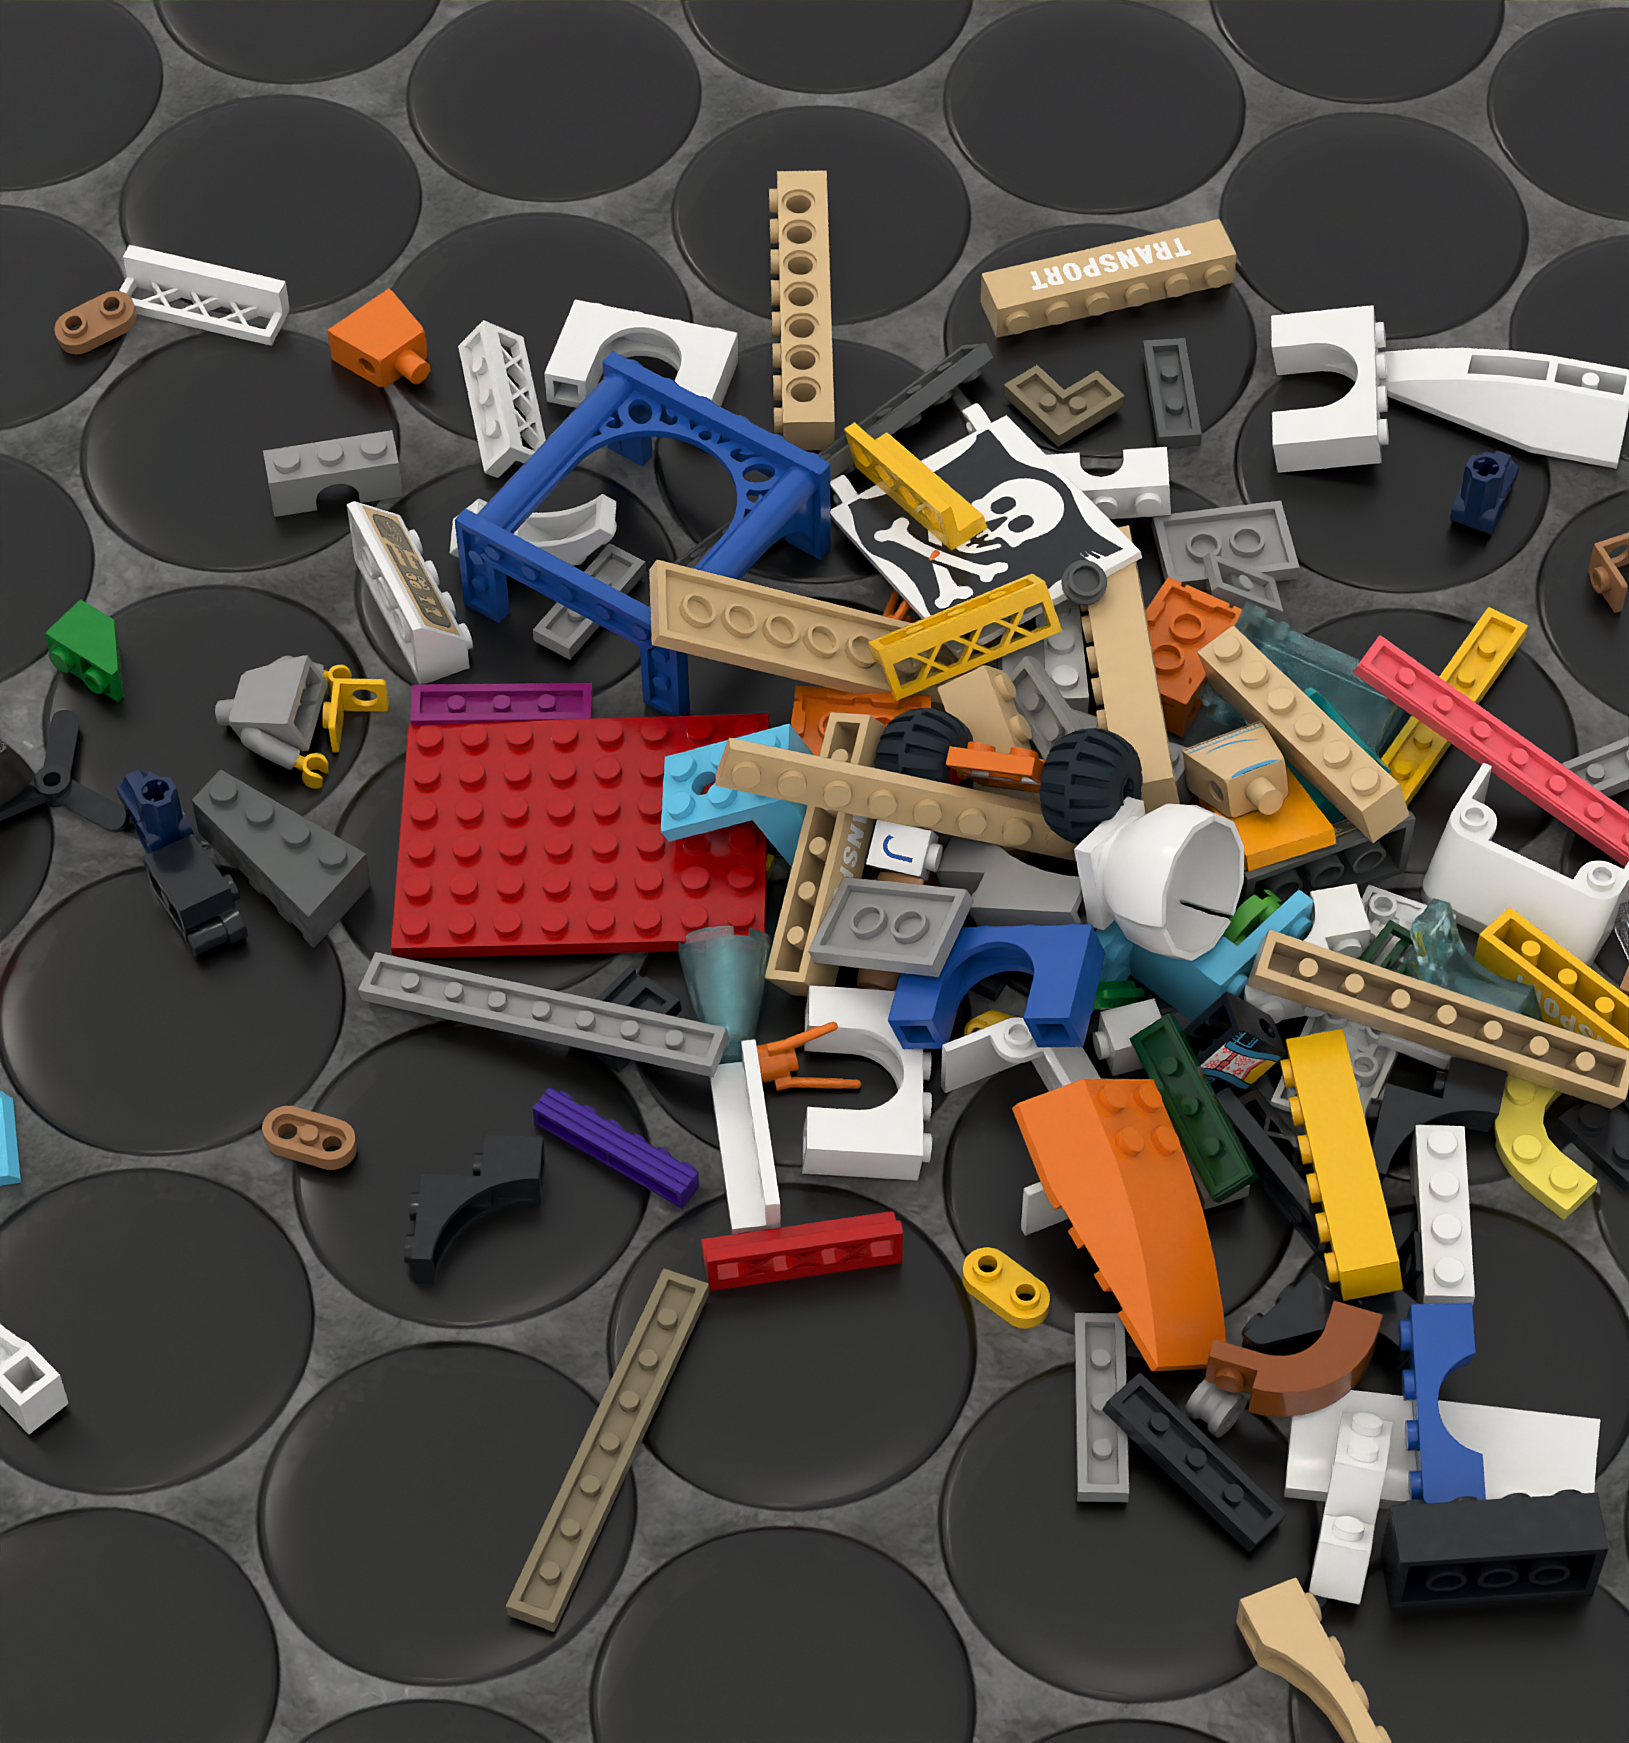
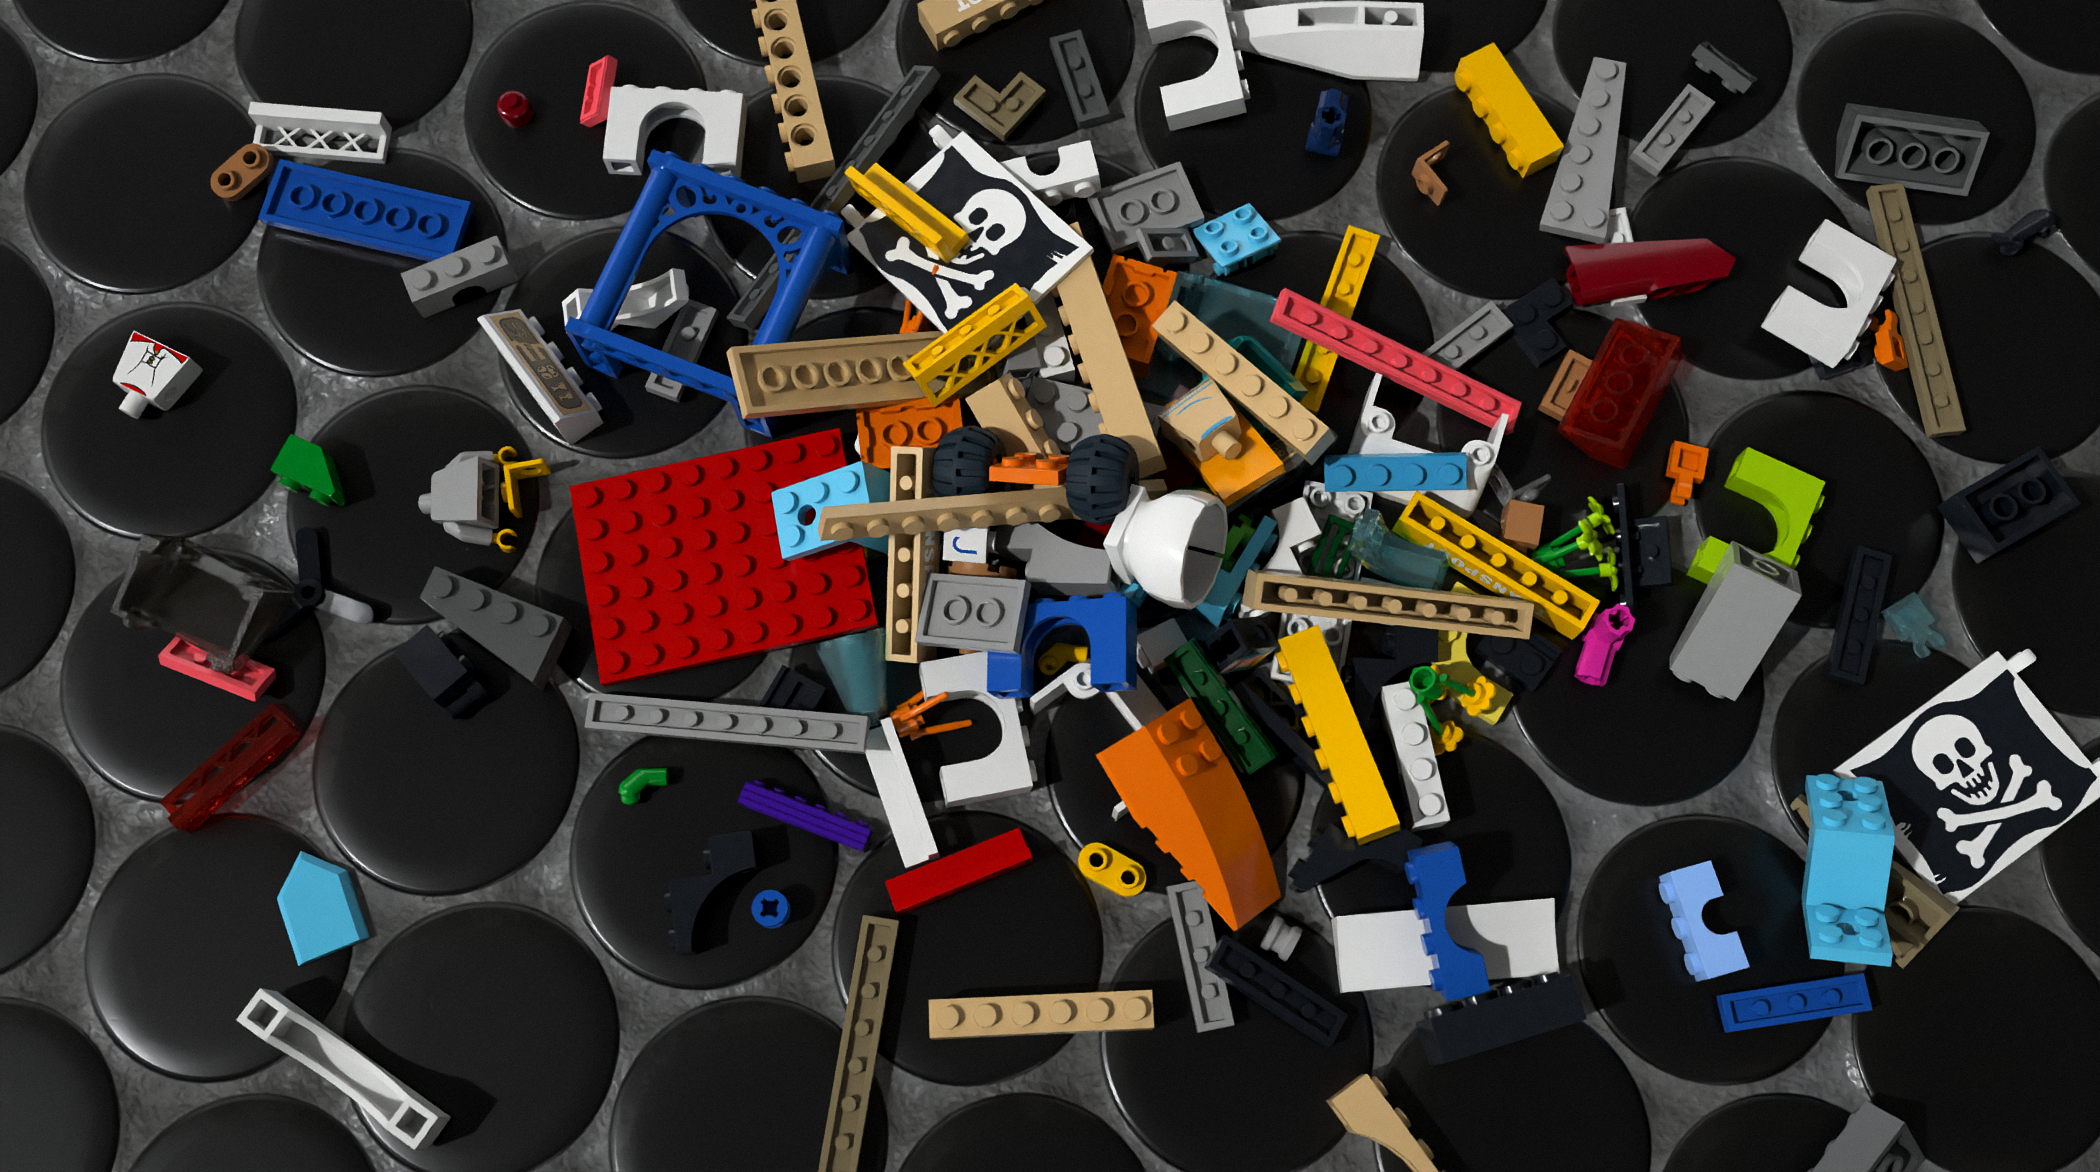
camera: 15 degrees left, 20 degrees up
(154, 809) = (392, 607): dark blue piece -> none
(232, 386) = (365, 212): none -> blue plate
(312, 1137) = (578, 858): medium nougat plate -> none
(381, 342) = (470, 149): orange torso -> none
(414, 1065) = (638, 780): none -> green arm
(447, 311) = (514, 109): none -> dark red piece
(493, 395) = (568, 182): white fence -> none
(499, 702) = (634, 455): magenta plate -> none
(544, 1255) = (776, 914): none -> blue wheel
(556, 307) = (597, 91): none -> coral plate
(871, 1429) = (1041, 1014): none -> tan brick
(1042, 705) = (1053, 404): light grey plate -> none
(1084, 582) = (1056, 284): dark grey plate -> none
(1116, 994) = (1146, 613): green axle -> none
(1302, 1380) = (1365, 900): dark orange arch -> none
(1331, 597) = (1235, 238): none -> medium azure hinge
(1351, 1507) = (1396, 1002): white arch -> none
(1485, 1146) = (1431, 686): none -> plant
(1486, 881) = (1395, 472): none -> dark azure plate

